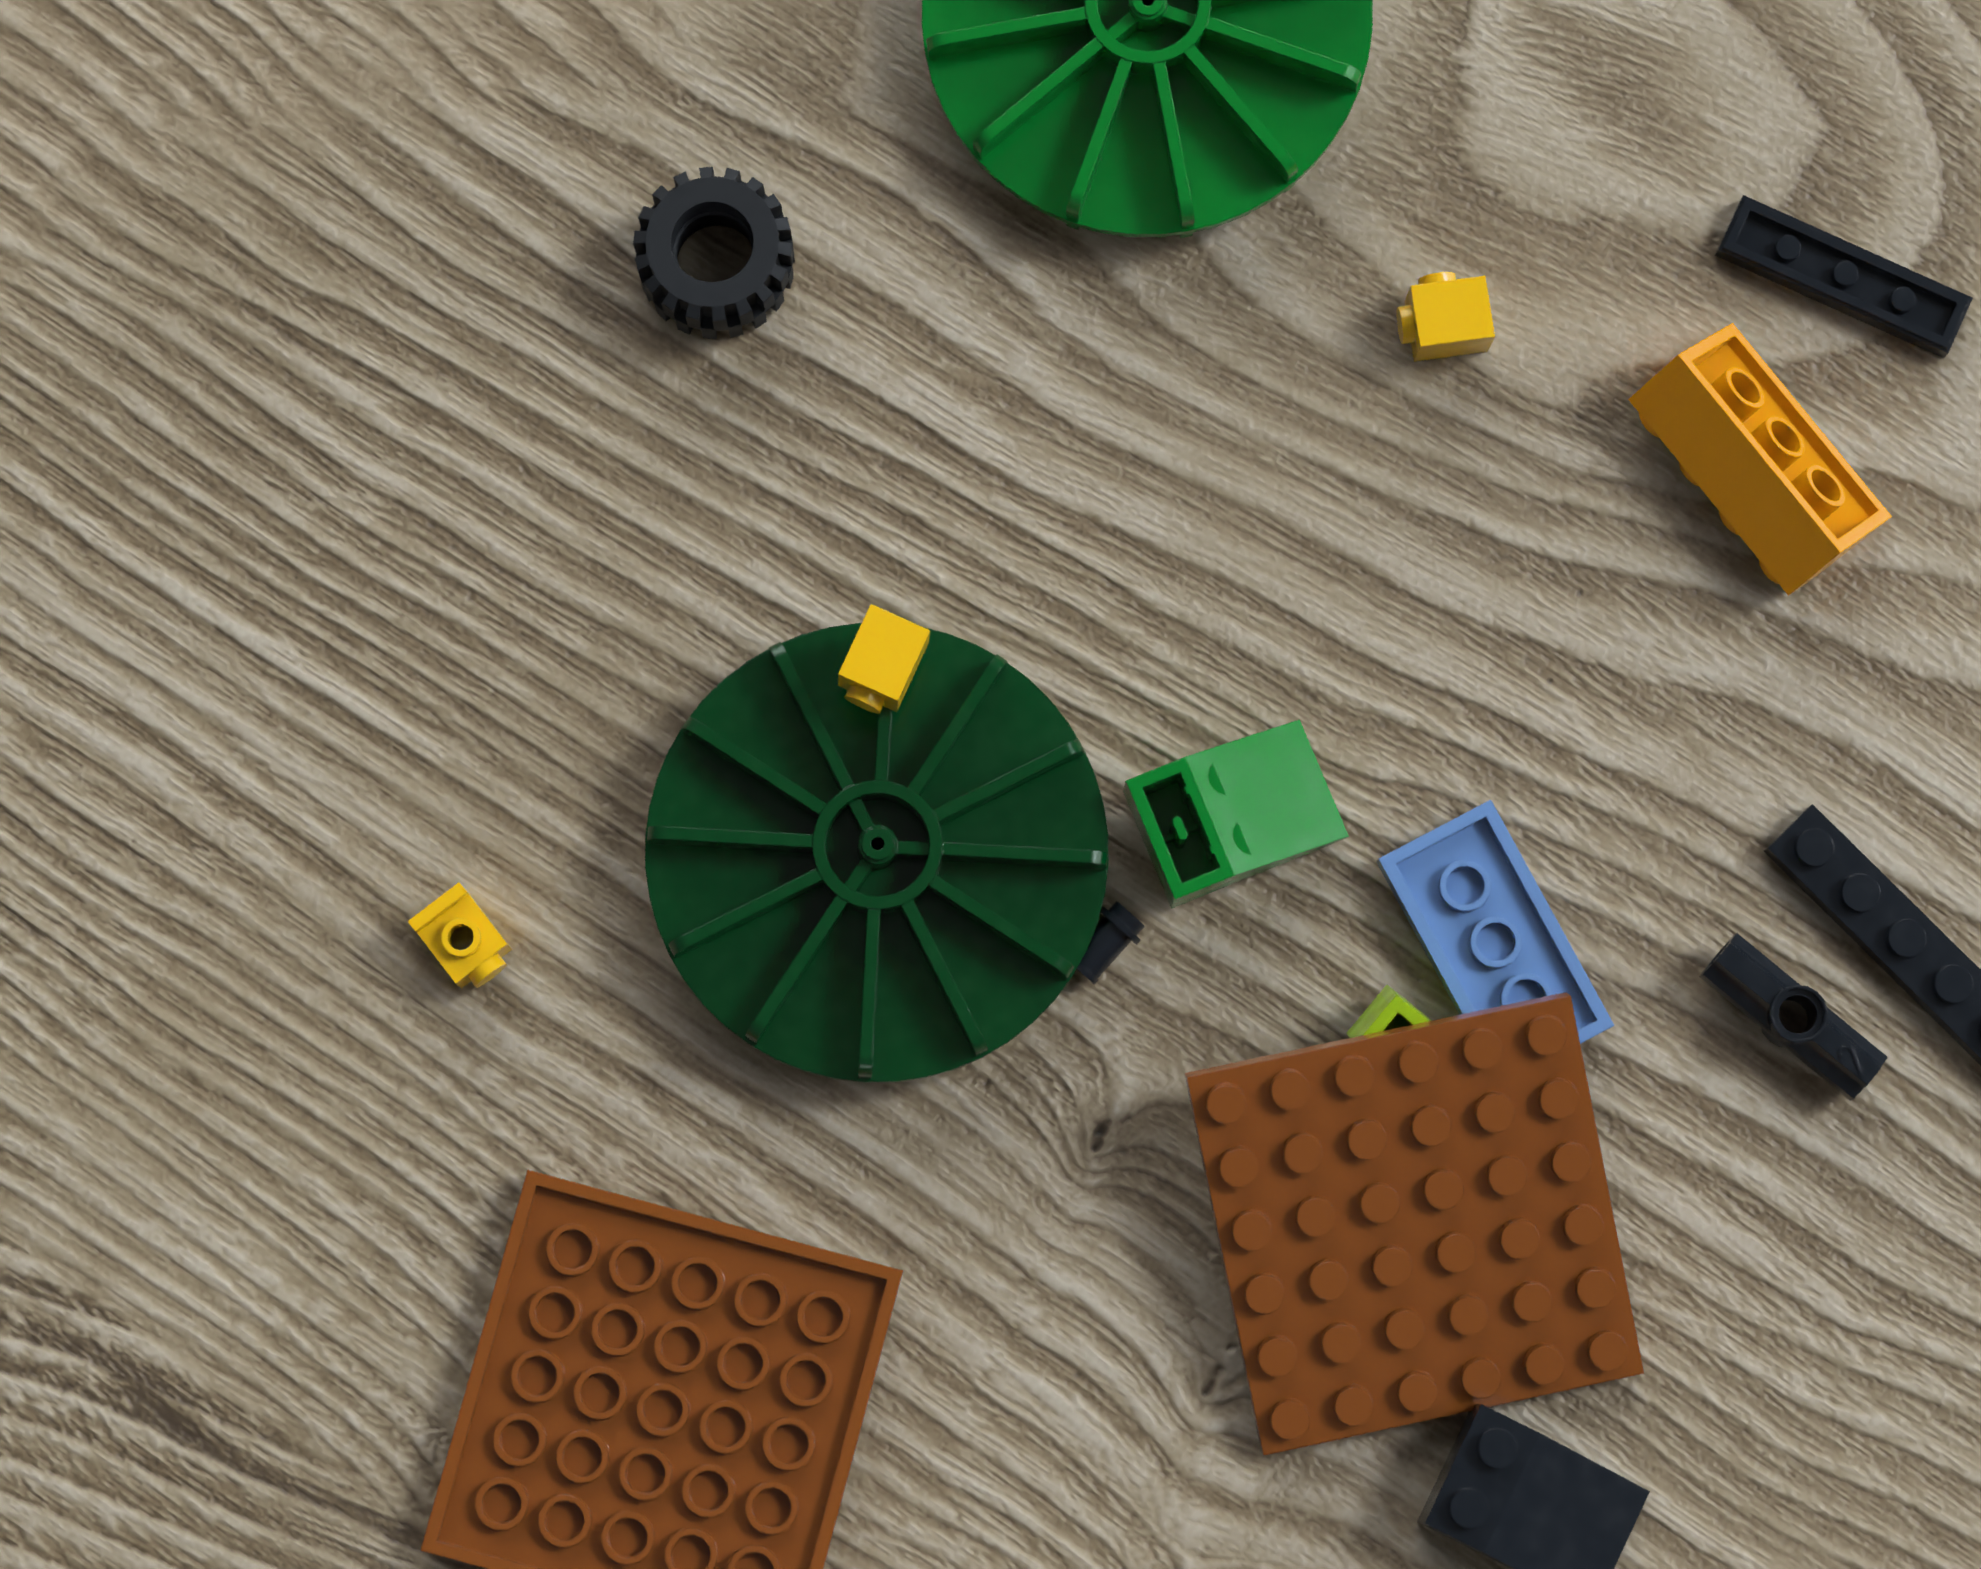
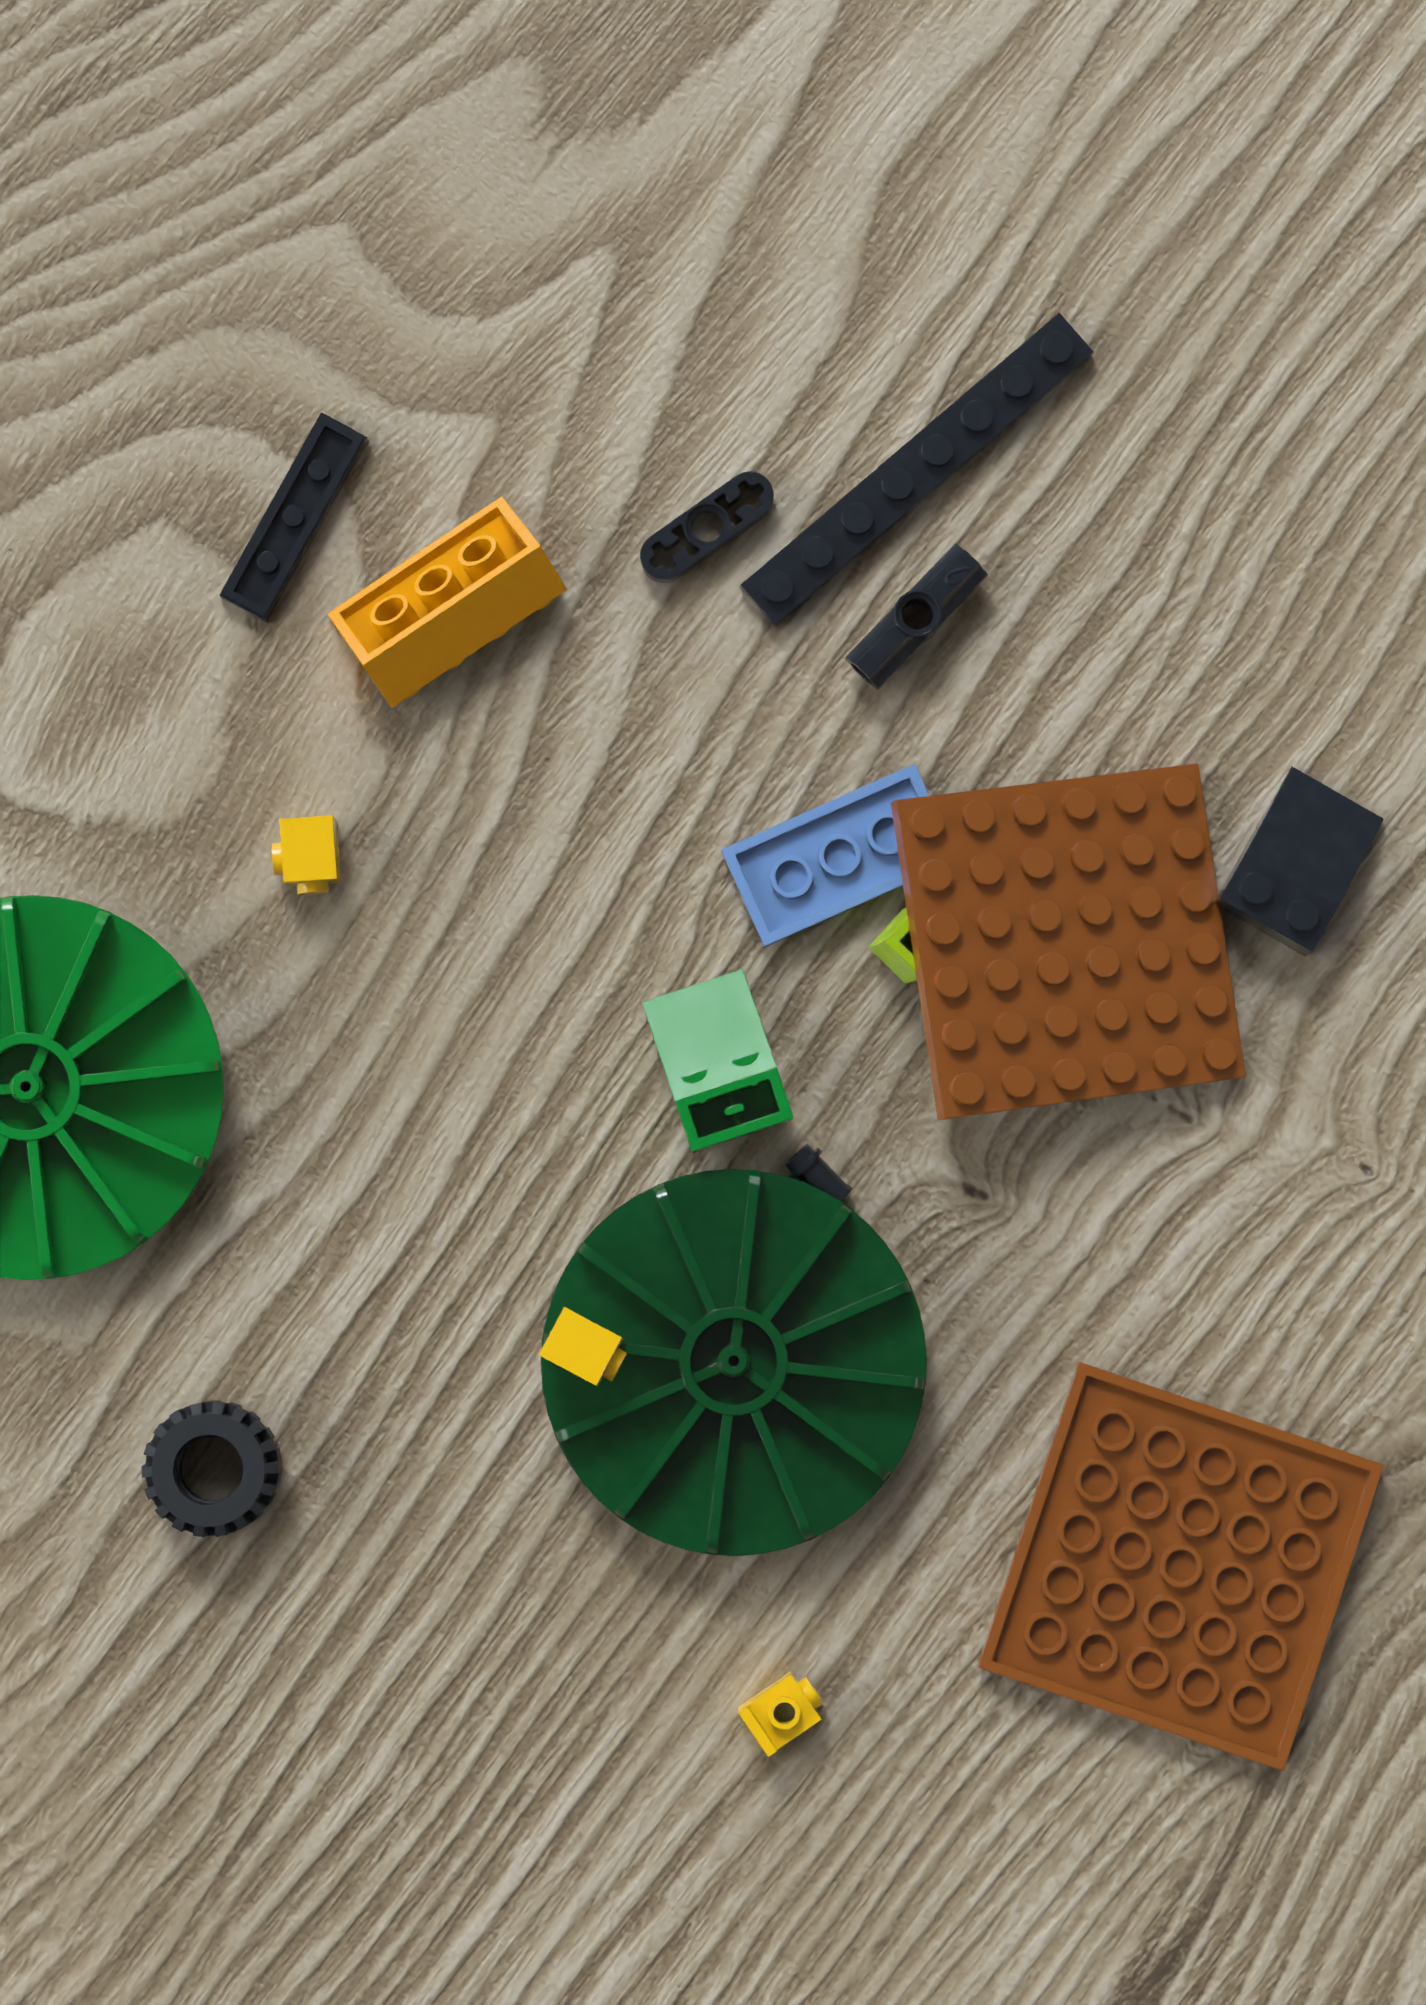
camera: 85 degrees left, 5 degrees up
(1905, 760) = (745, 514): none -> black beam

